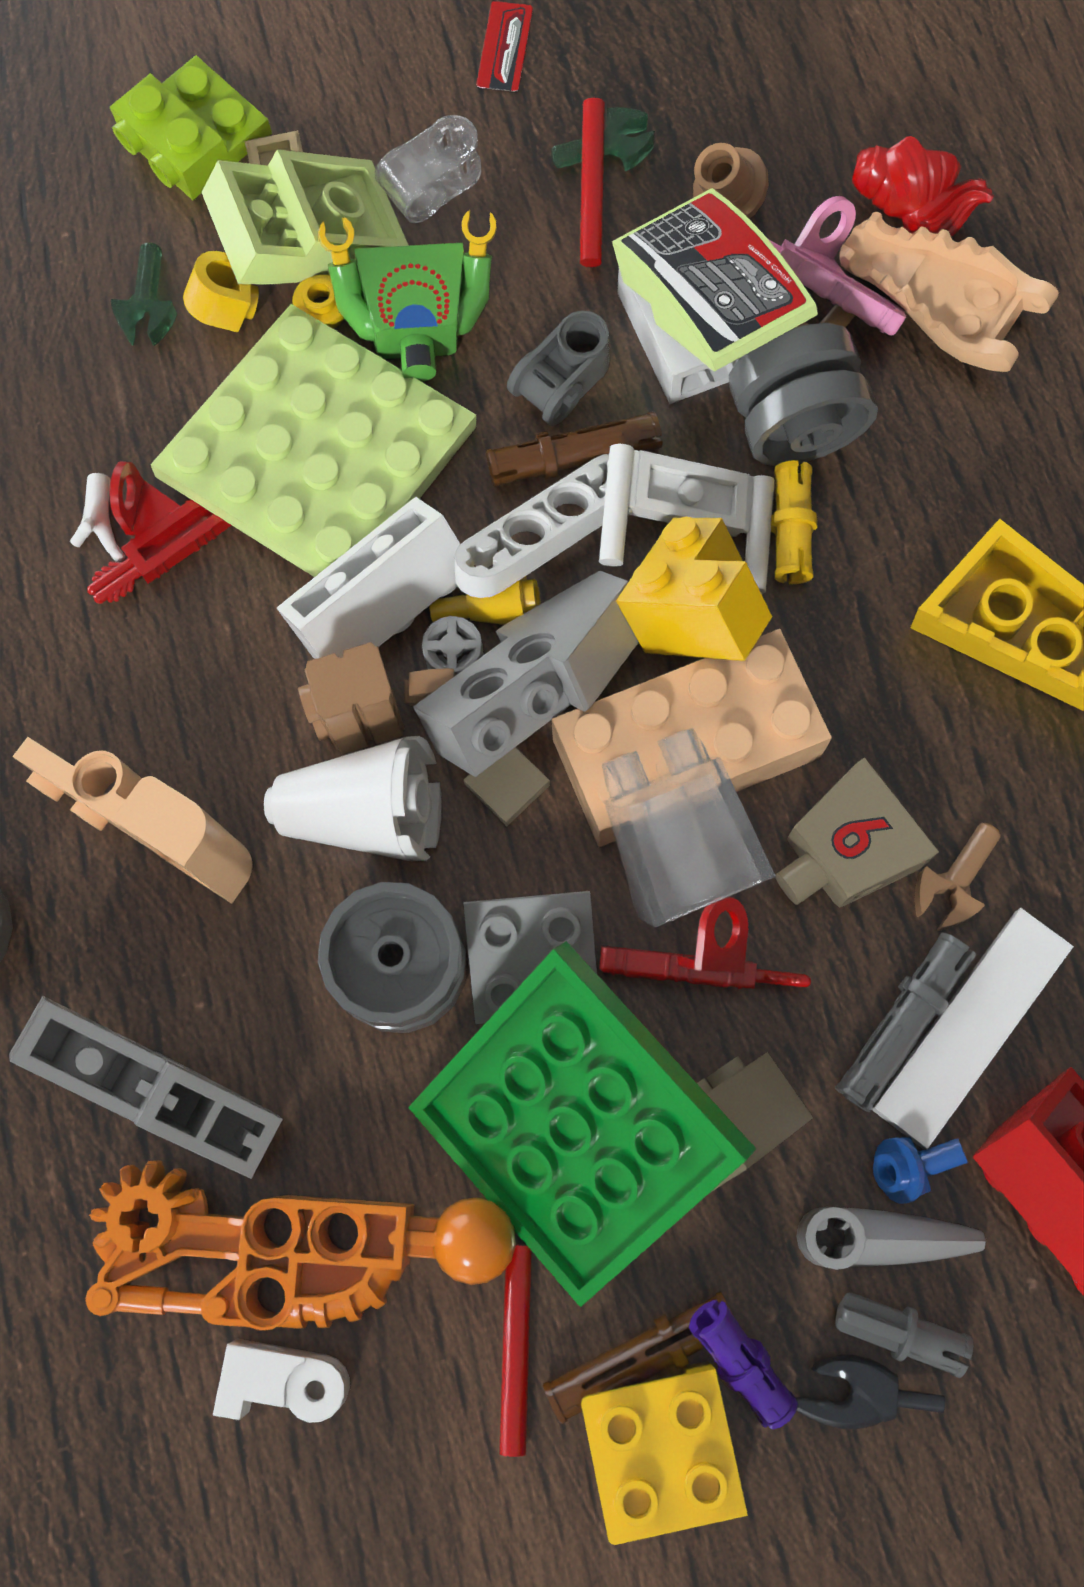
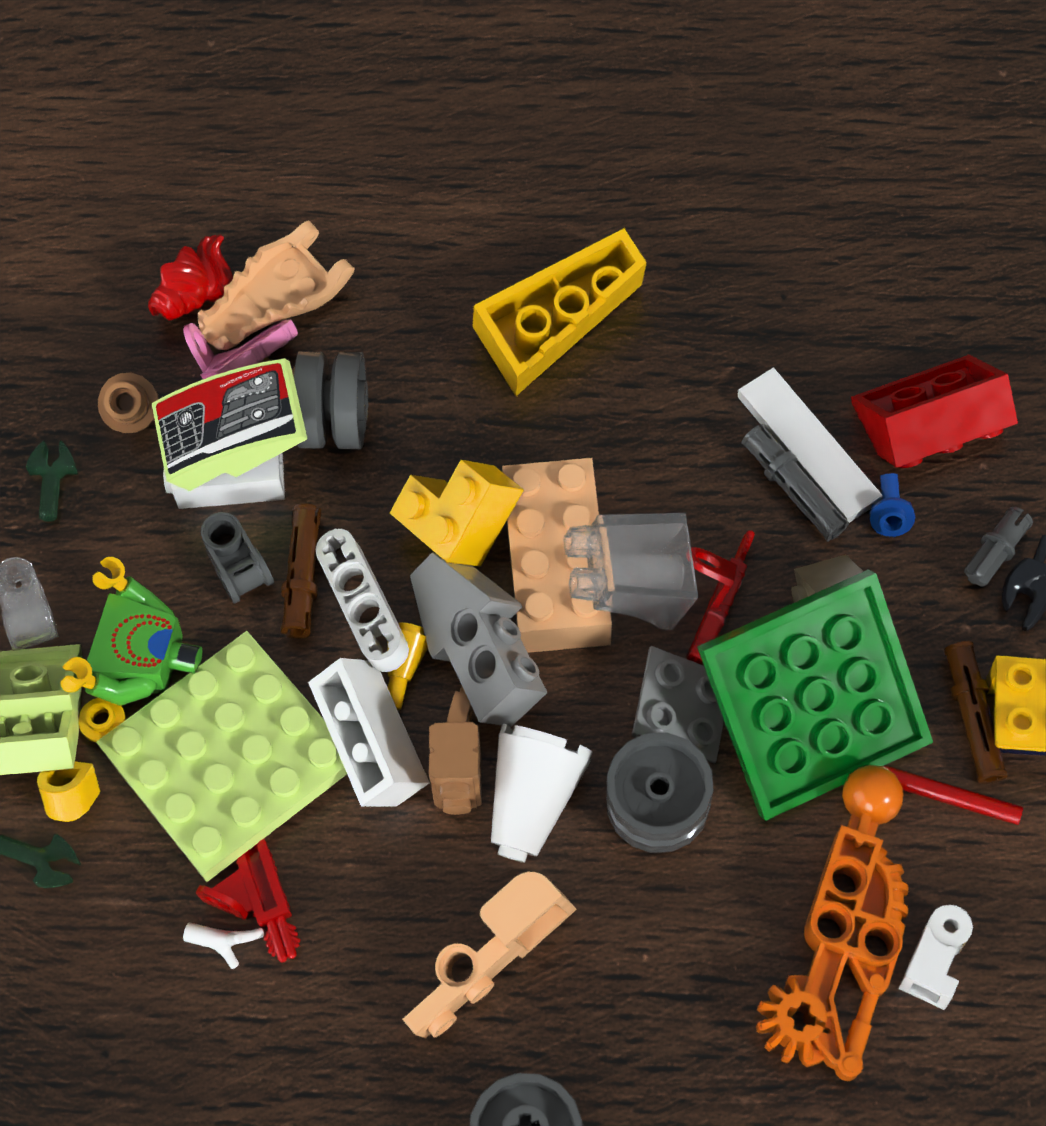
camera: 75 degrees left, 10 degrees down
(145, 1087) = (703, 991): light grey brick -> none
(451, 638) = (431, 686): light grey wheel -> none
(508, 785) = (558, 690): dark tan tile -> none
(592, 182) = (85, 495): red bar -> none
(676, 488) = (371, 500): white plate -> none
(743, 1364) = (995, 641): dark purple pin -> none
(793, 522) = (413, 442): yellow pin -> none
(854, 841) = (661, 470): dark tan torso -> none
(884, 1238) = (932, 546): light grey piece -> none
(958, 878) = (707, 423): medium nougat bar -> none

